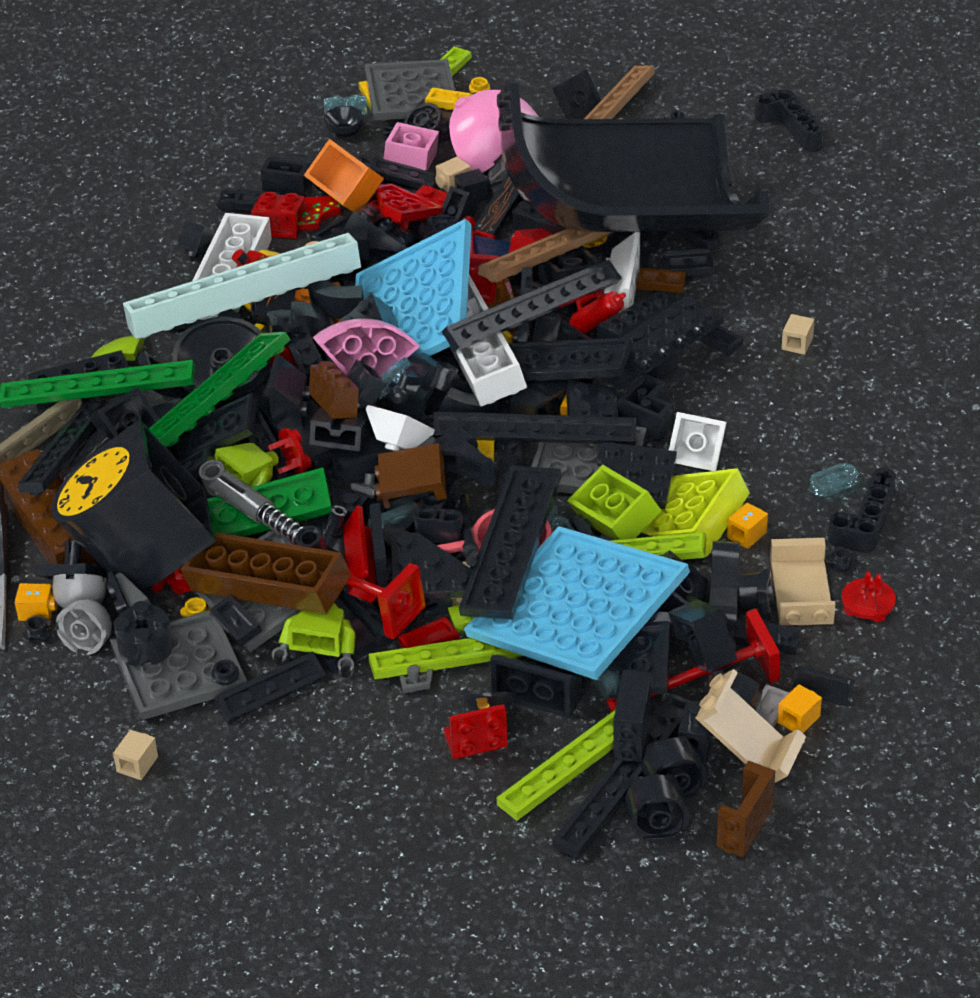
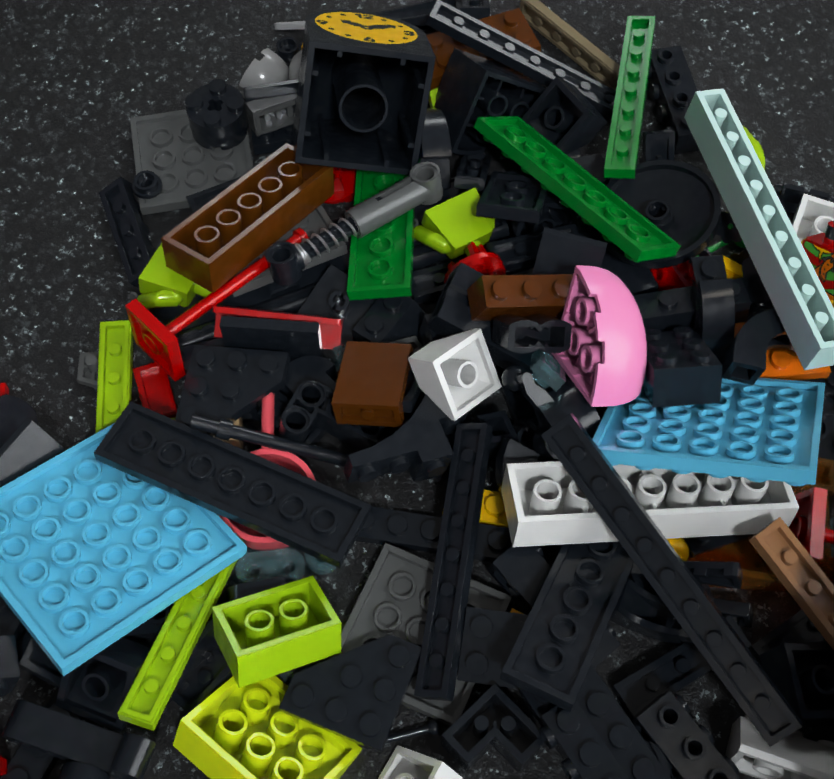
camera: 100 degrees right, 20 degrees up
(135, 754) = (78, 112): tan brick -> none
(597, 311) = (720, 710): red piece -> none

